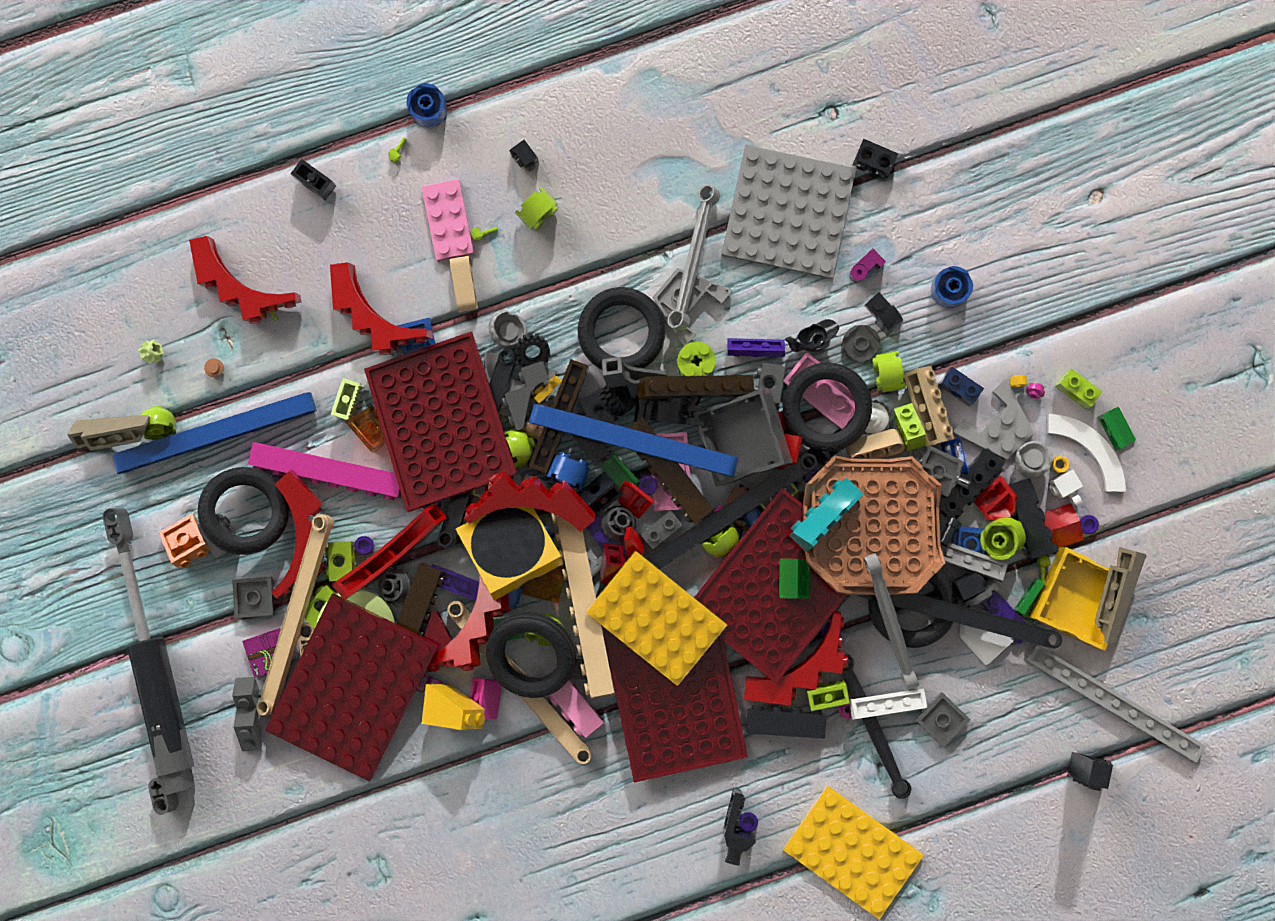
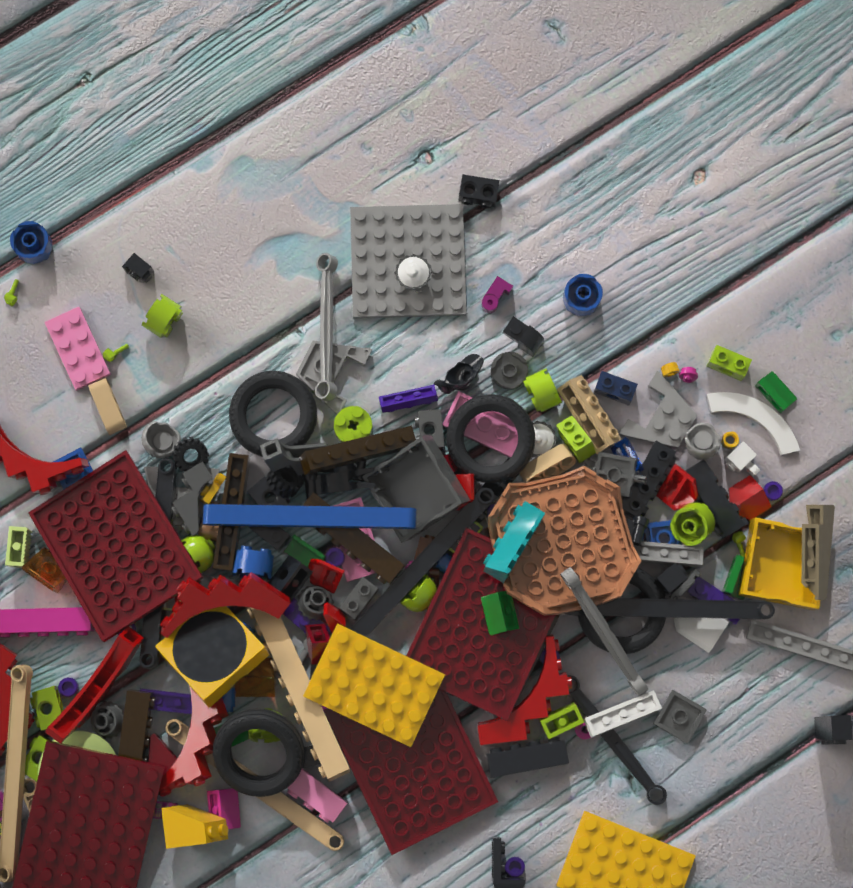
camera: 20 degrees left, 5 degrees down
(791, 224) = (413, 272): none -> white piece

